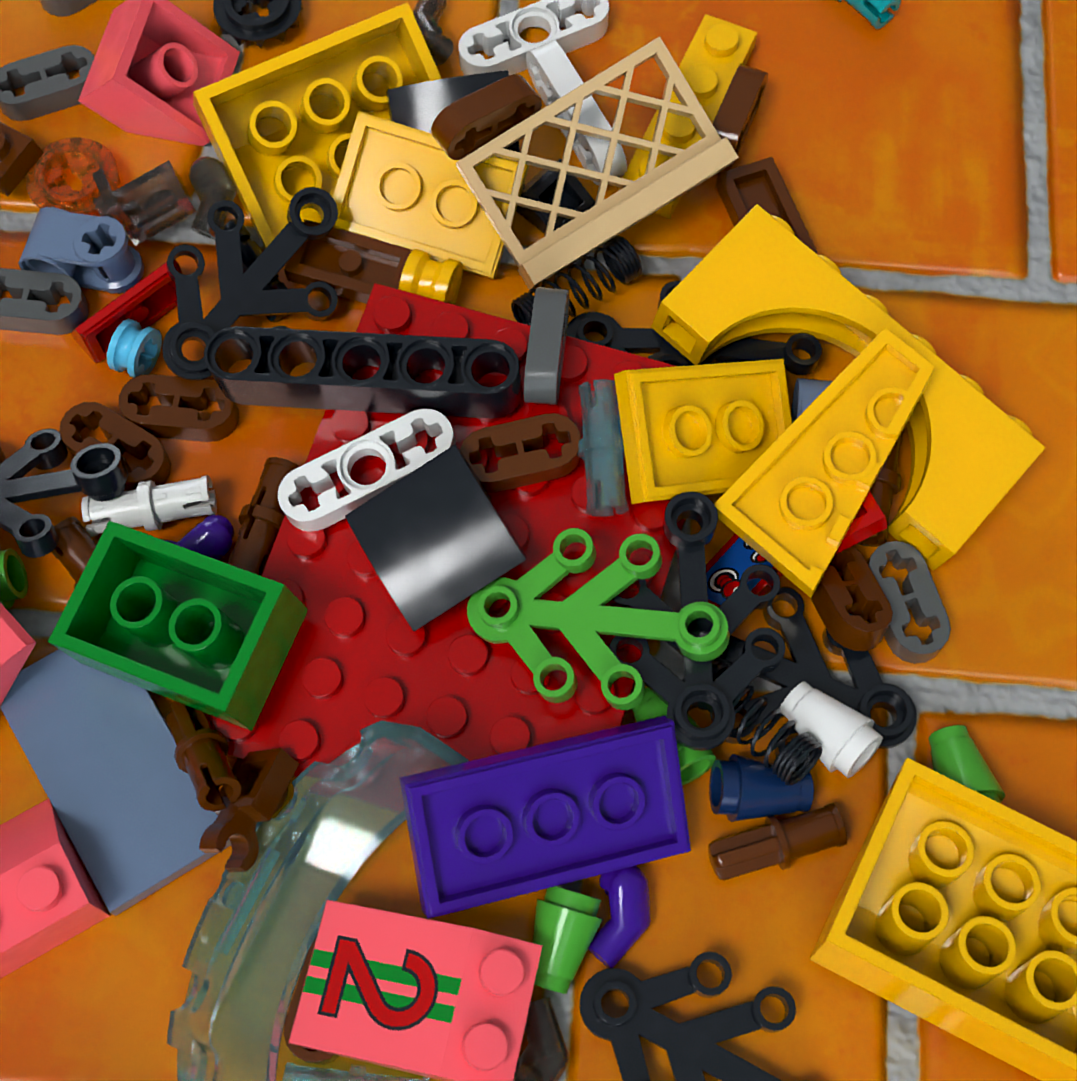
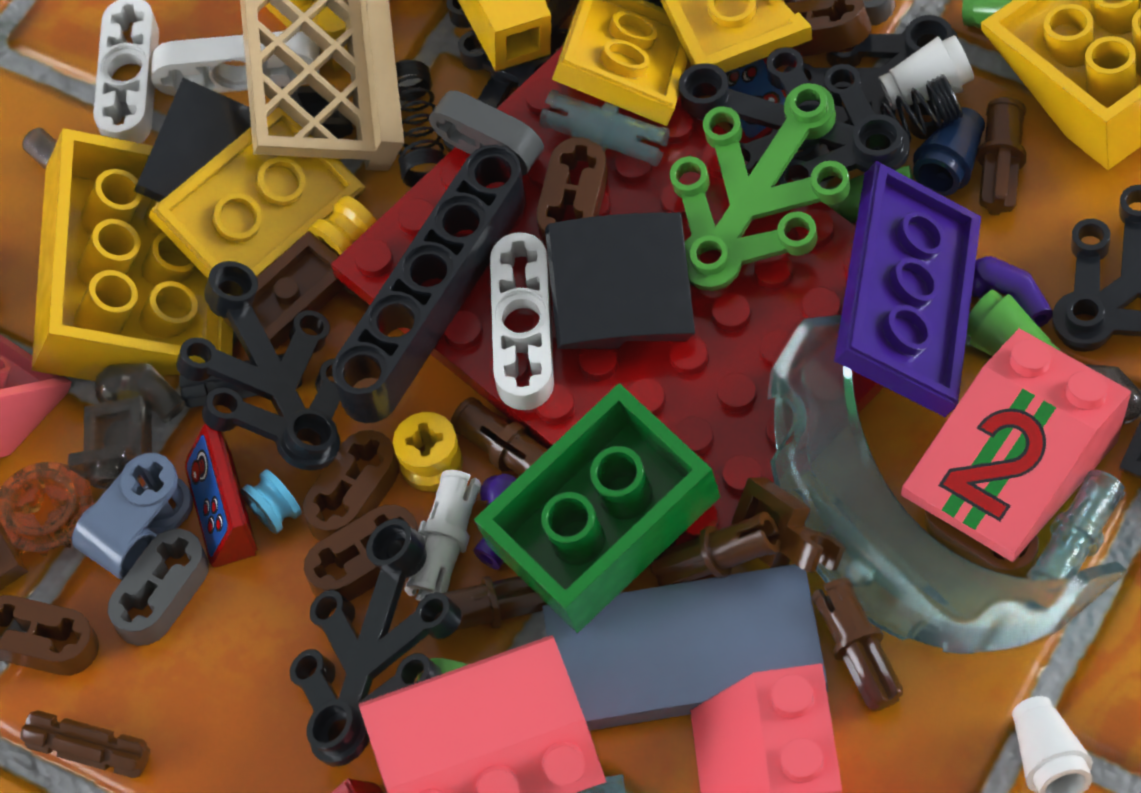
camera: 55 degrees left, 10 degrees down
(159, 925) = (858, 644): none -> reddish brown axle
(238, 468) = (440, 454): none -> yellow wheel
(484, 115) = (228, 103): reddish brown beam -> none

